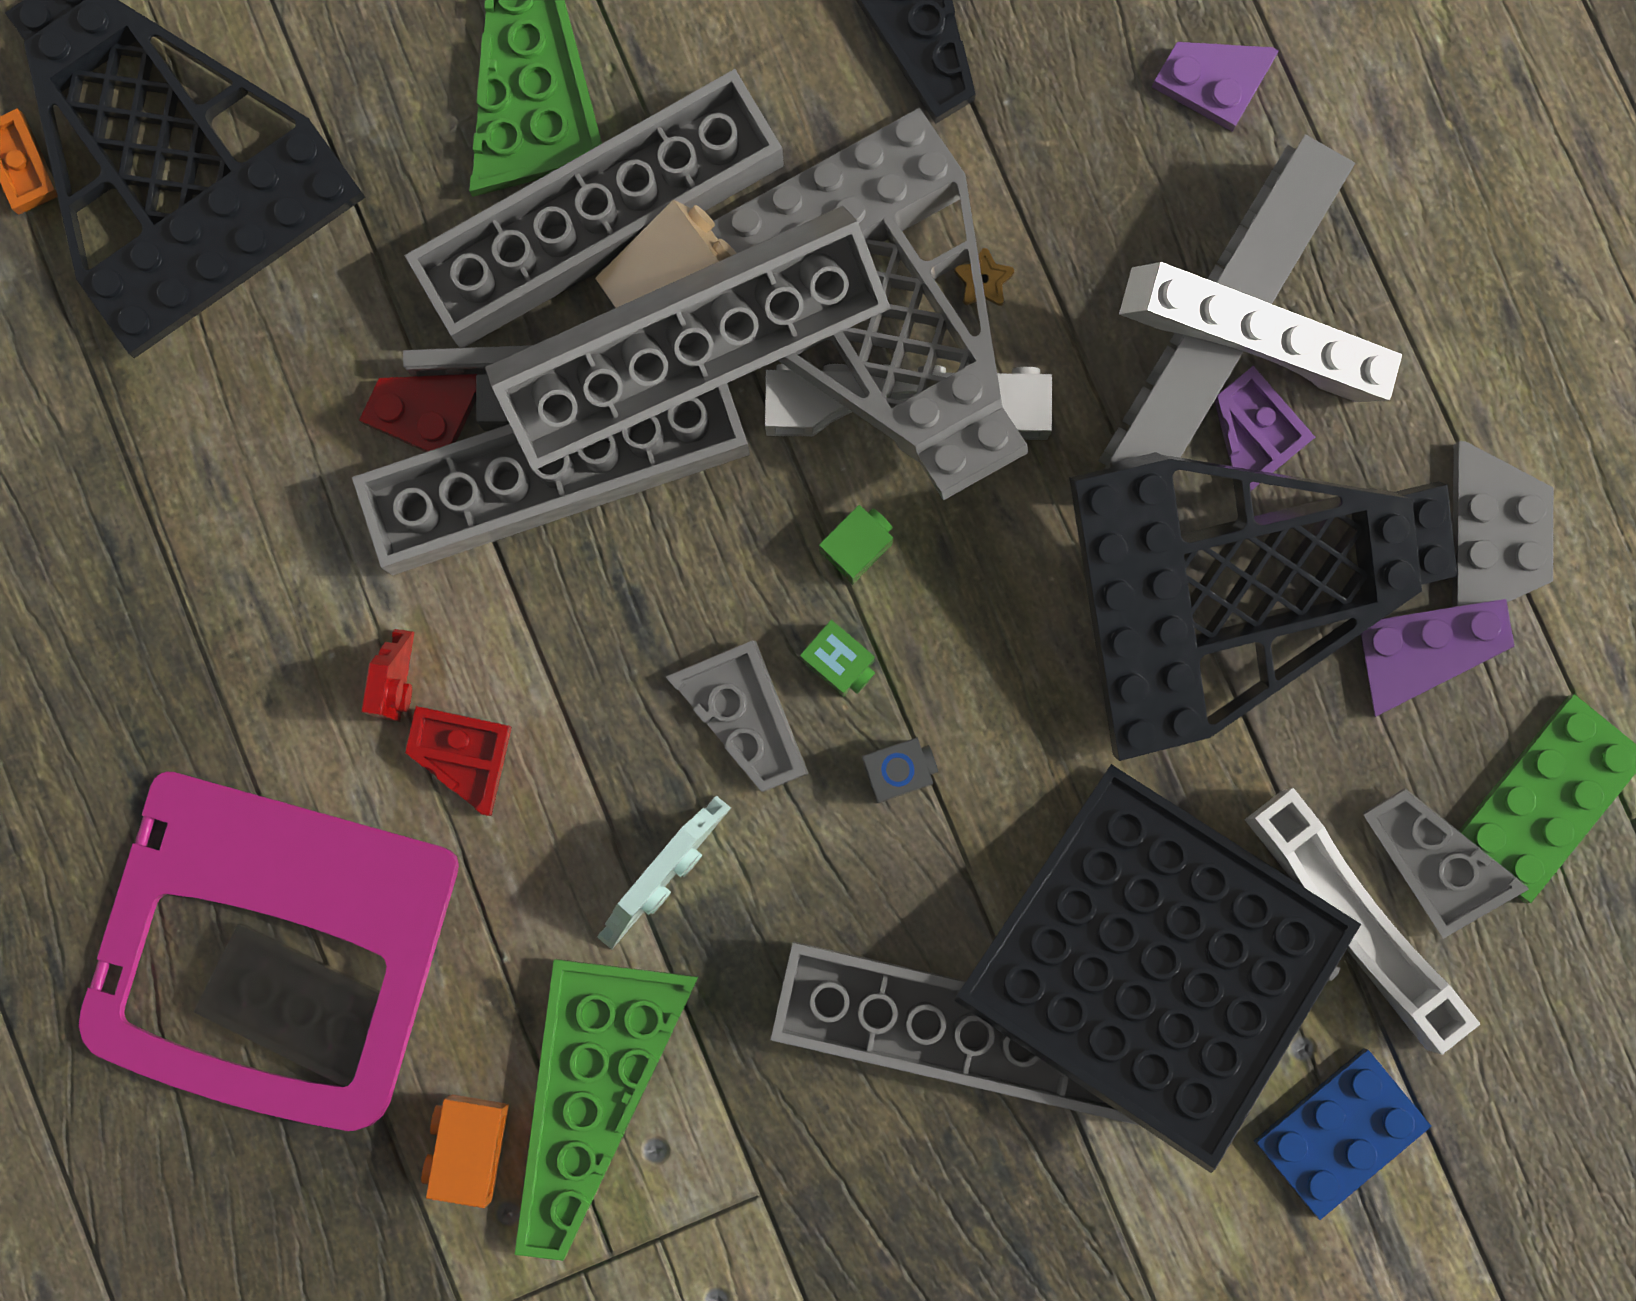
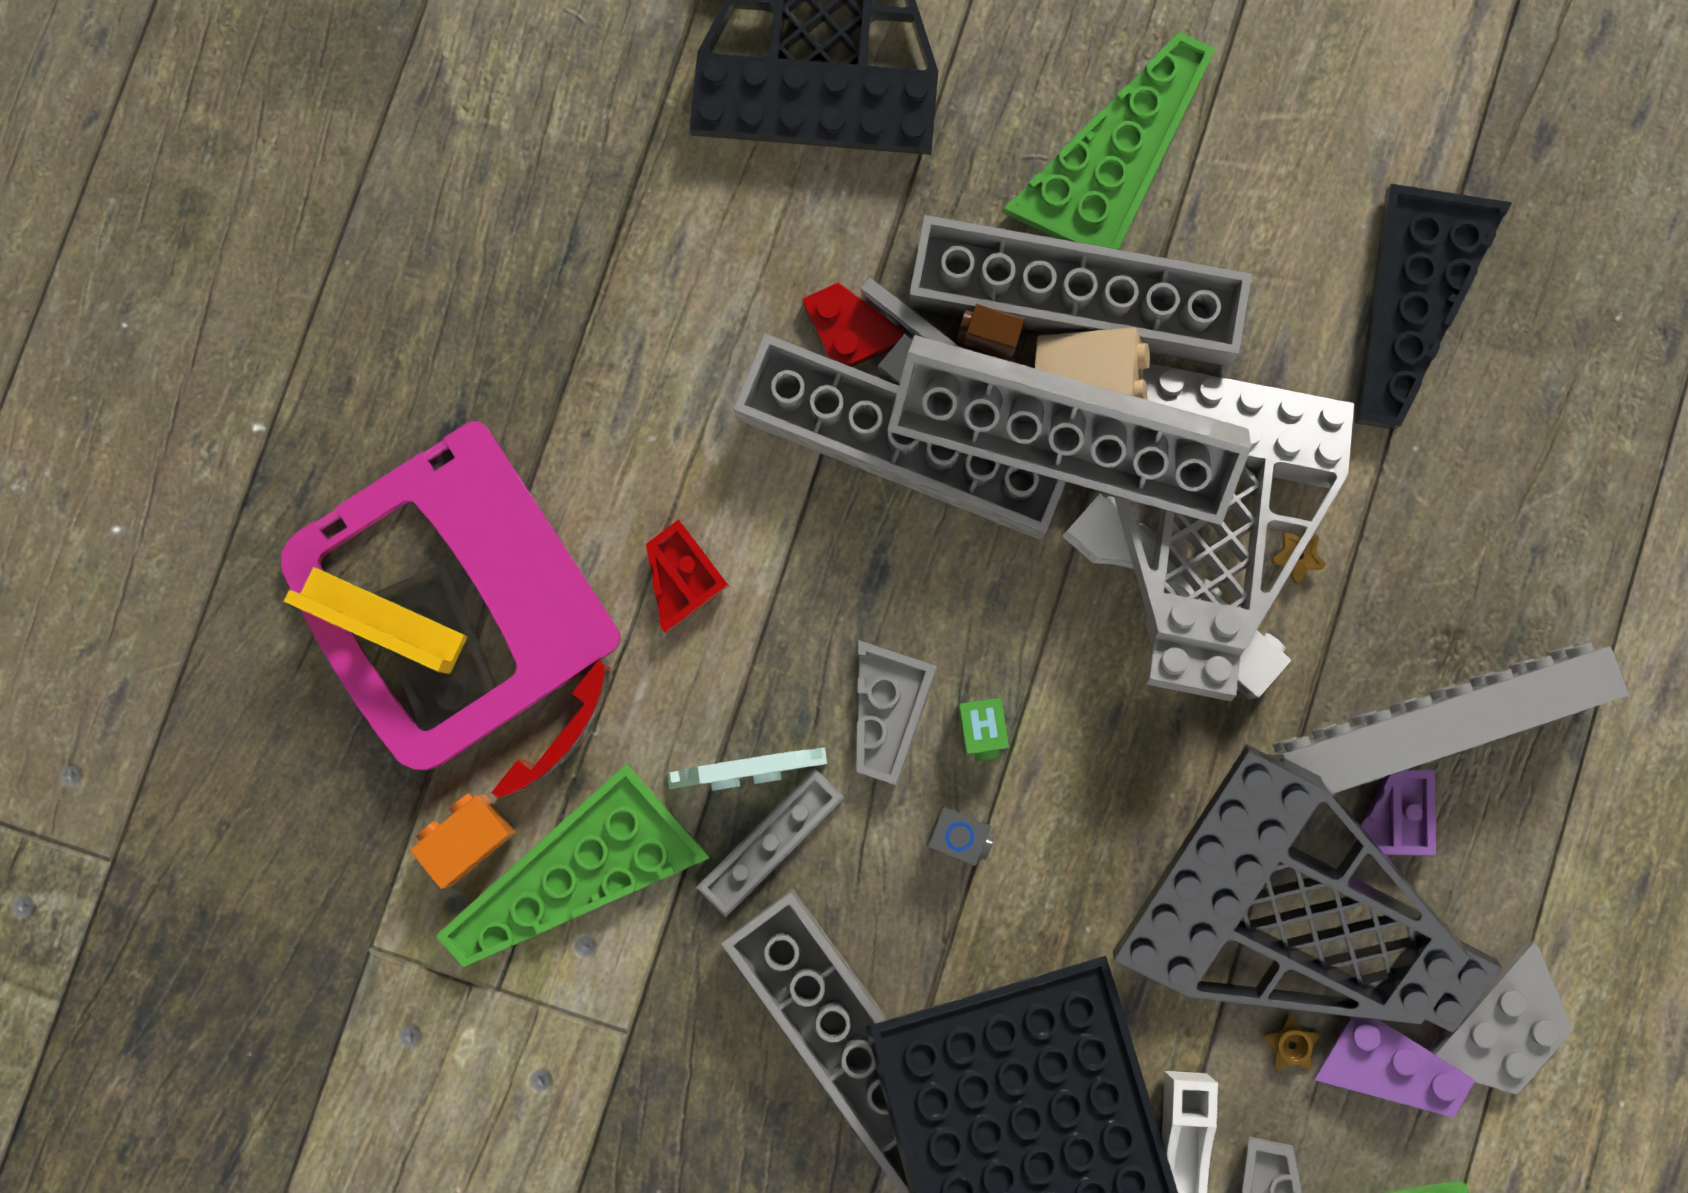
camera: 40 degrees right, 0 degrees up
(223, 1022) = (379, 620): none -> yellow fence
(386, 684) = (669, 491): red wing -> none
(472, 1048) = (525, 775): none -> red slope
(550, 309) = (990, 332): none -> reddish brown brick
(739, 918) = (770, 842): none -> light grey tile
(857, 542) = (1062, 660): bright green brick -> none
(1208, 311) = (1439, 710): white arch -> none
(1214, 78) = (1575, 552): medium lavender wing -> none
(1346, 703) = (1304, 1045): none -> pearl gold plate

